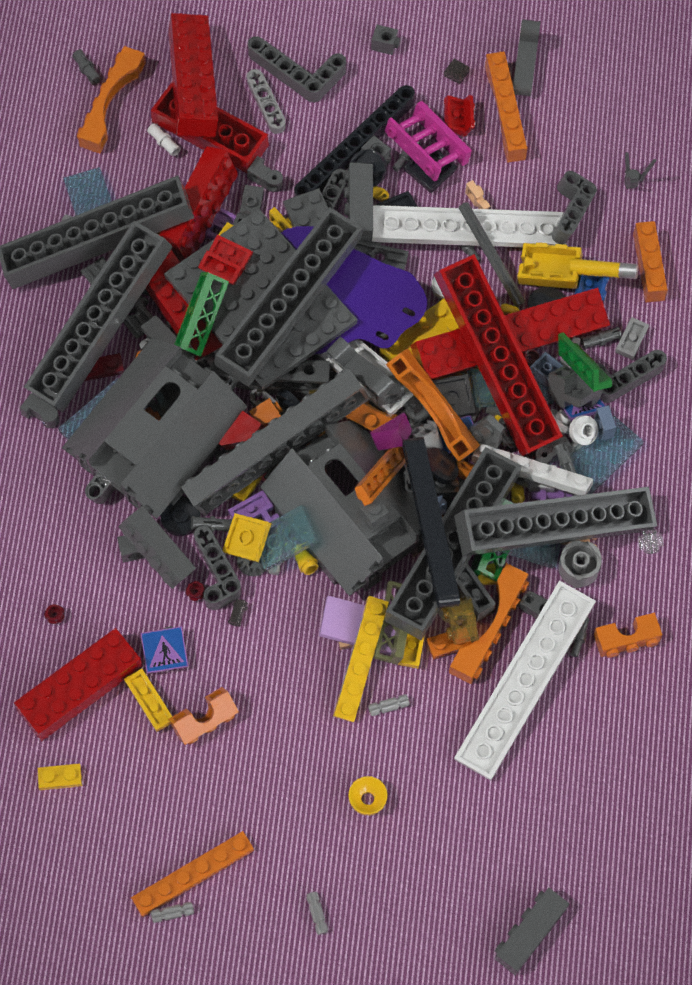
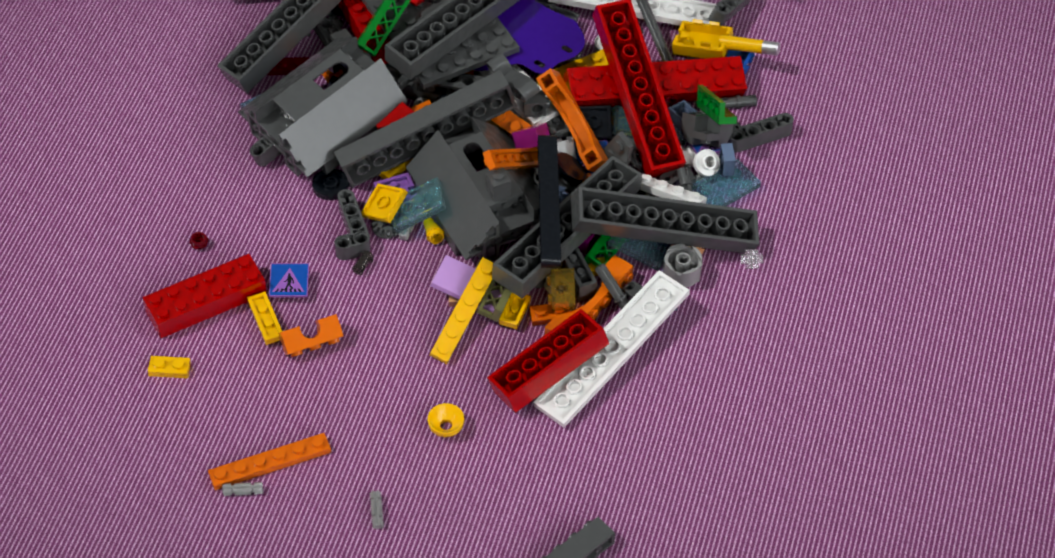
camera: 10 degrees right, 15 degrees down
(41, 410) = (228, 88): dark grey leg -> none
(128, 550) = (281, 199): dark grey brick -> none
(157, 547) = (302, 198): dark grey brick -> none
(195, 585) = (327, 240): dark red plate -> none
(212, 523) = (358, 191): dark grey pin -> none
(388, 705) = (482, 353): light grey axle -> none
(463, 710) = (548, 360): none -> red brick
(521, 615) = (611, 284): none -> dark grey axle
(579, 639) = (671, 325): dark grey bar -> none
(612, 642) = (701, 333): orange arch -> none
(632, 338) = (766, 105): light grey plate -> none
(650, 261) = (793, 50): orange brick -> none

